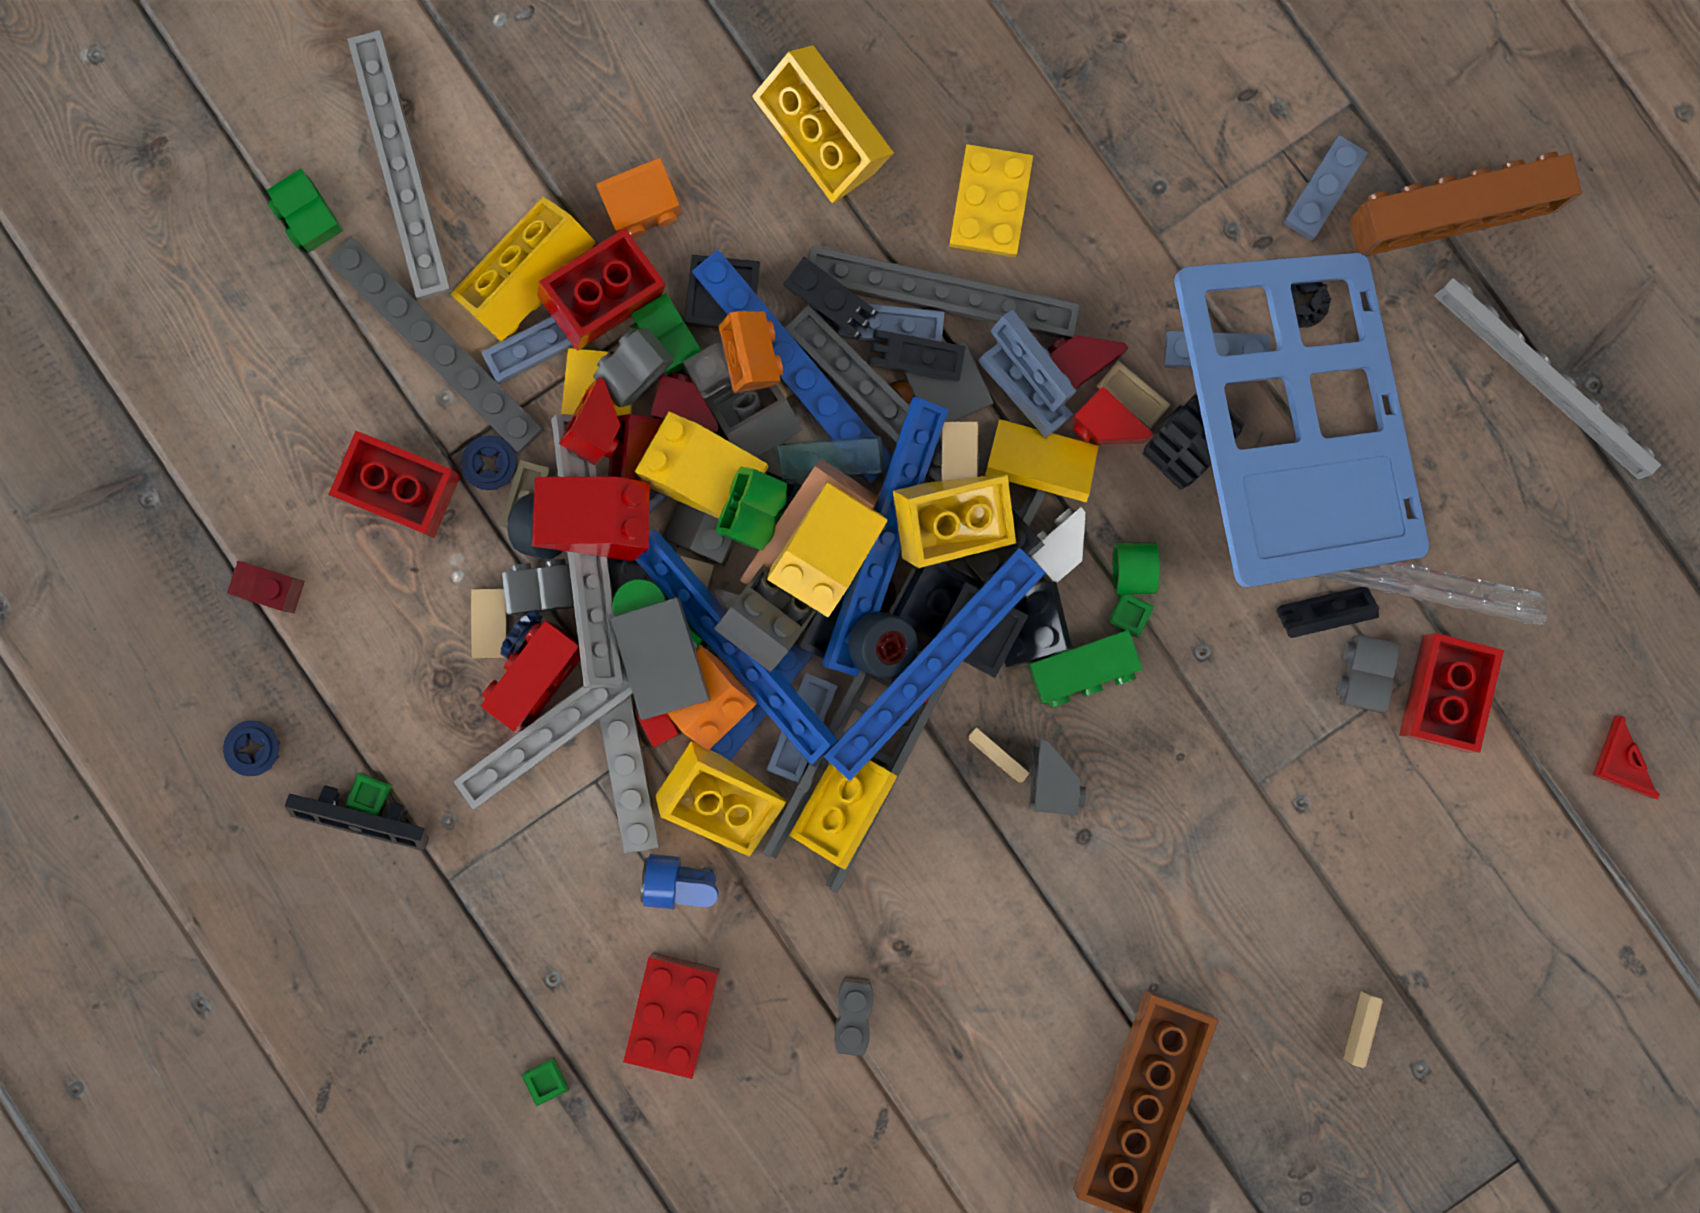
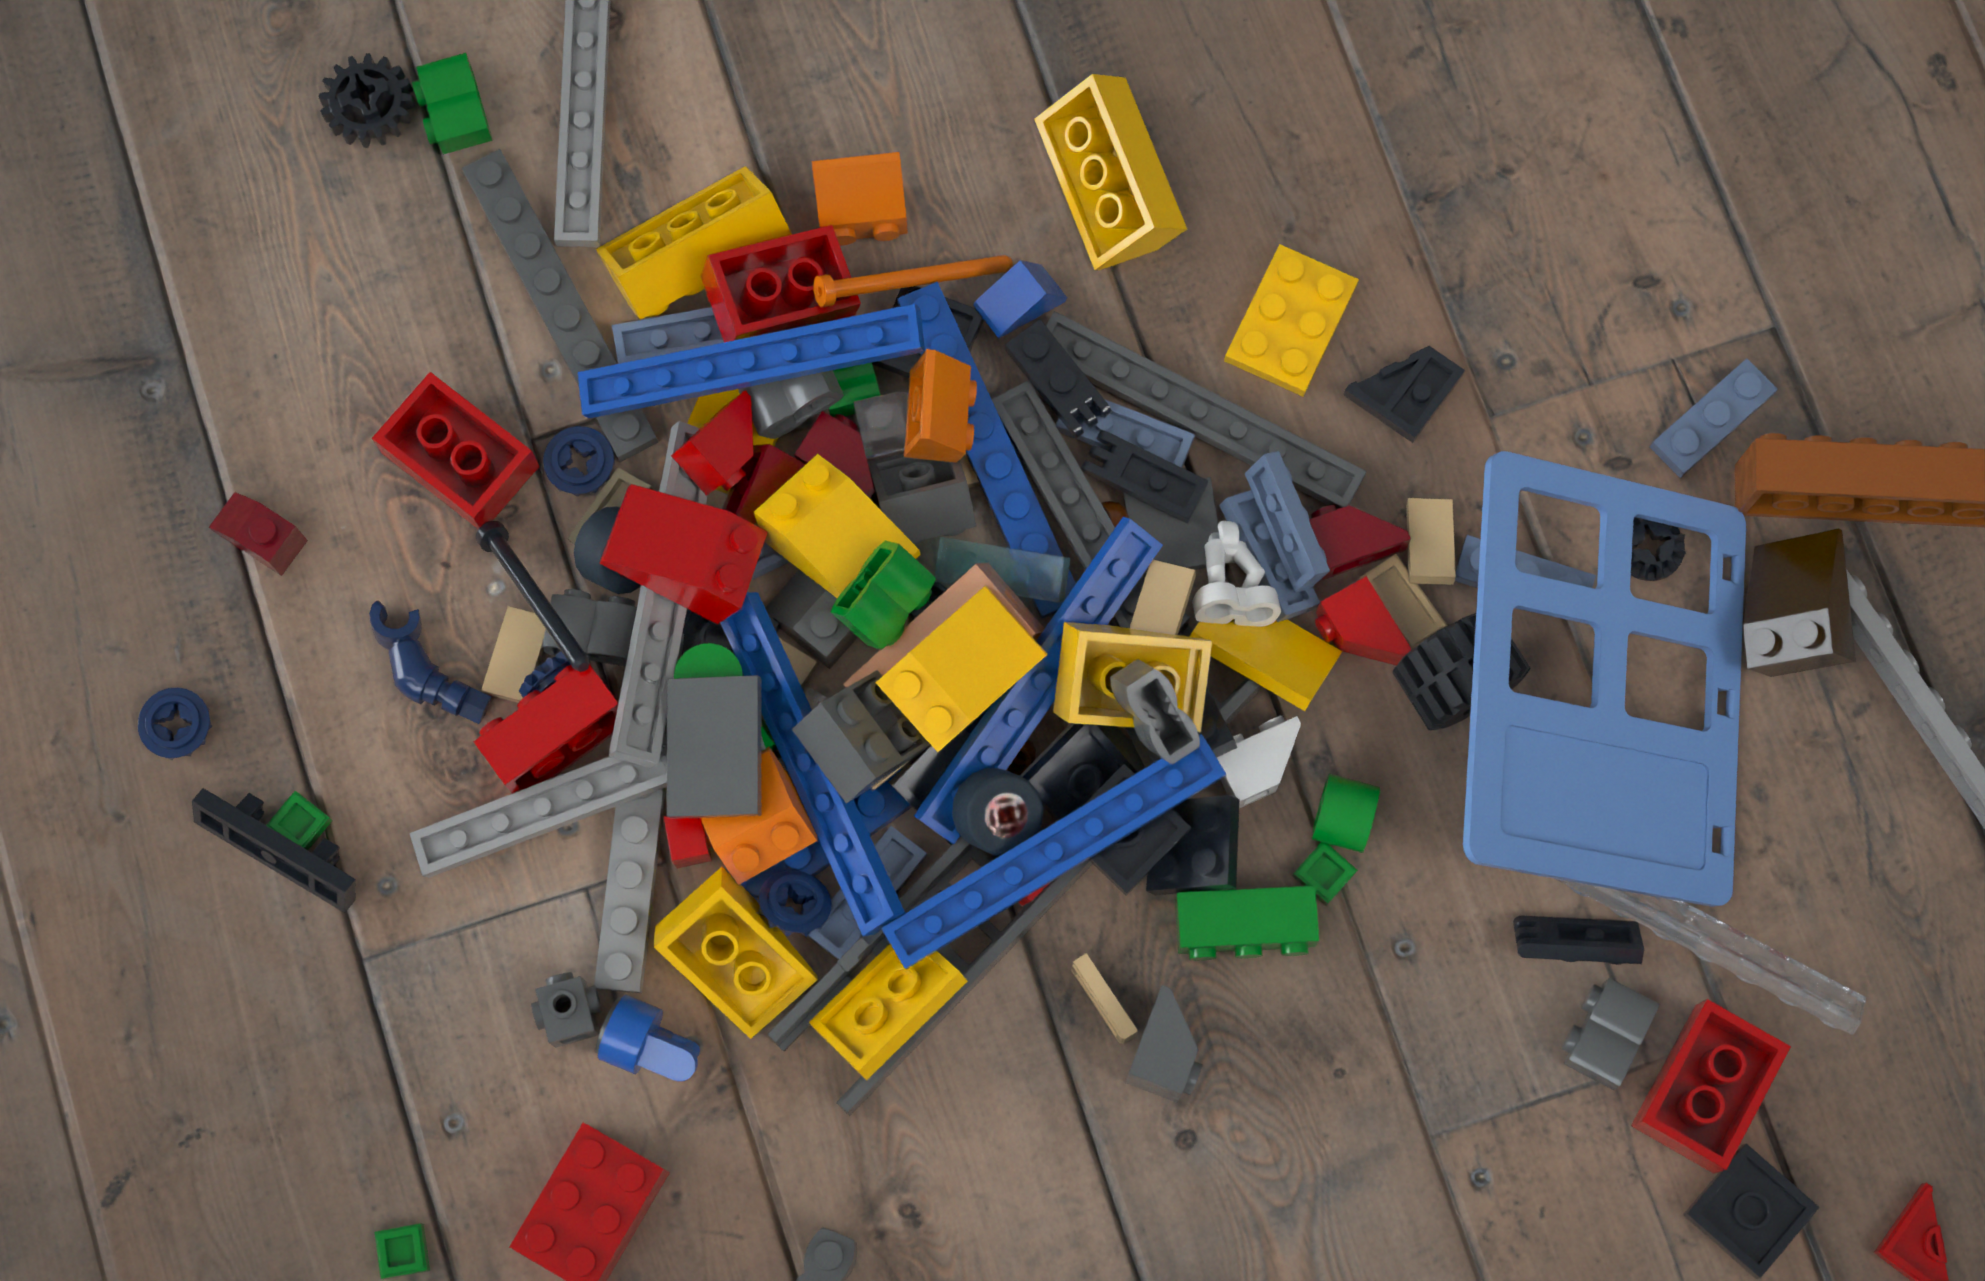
camera: 15 degrees right, 10 degrees down
(248, 220) = (346, 105): none -> black gear
(419, 660) = (416, 674): none -> dark blue piece
(444, 540) = (494, 538): none -> black bar
(598, 354) = (752, 361): none -> blue plate
(601, 886) = (576, 1023): none -> dark grey brick
(638, 281) = (827, 289): none -> orange bar
(755, 739) = (803, 890): none -> dark blue gear
(782, 243) = (1019, 298): none -> blue slope
(981, 543) = (1155, 713): none -> dark grey brick
(1006, 437) = (1222, 601): none -> white piece
(1093, 232) = (1407, 391): none -> black wing
(1143, 343) = (1432, 541): none -> tan tile
(1426, 315) = (1798, 606): none -> dark brown slope
(1501, 773) = (1751, 1211): none -> black plate

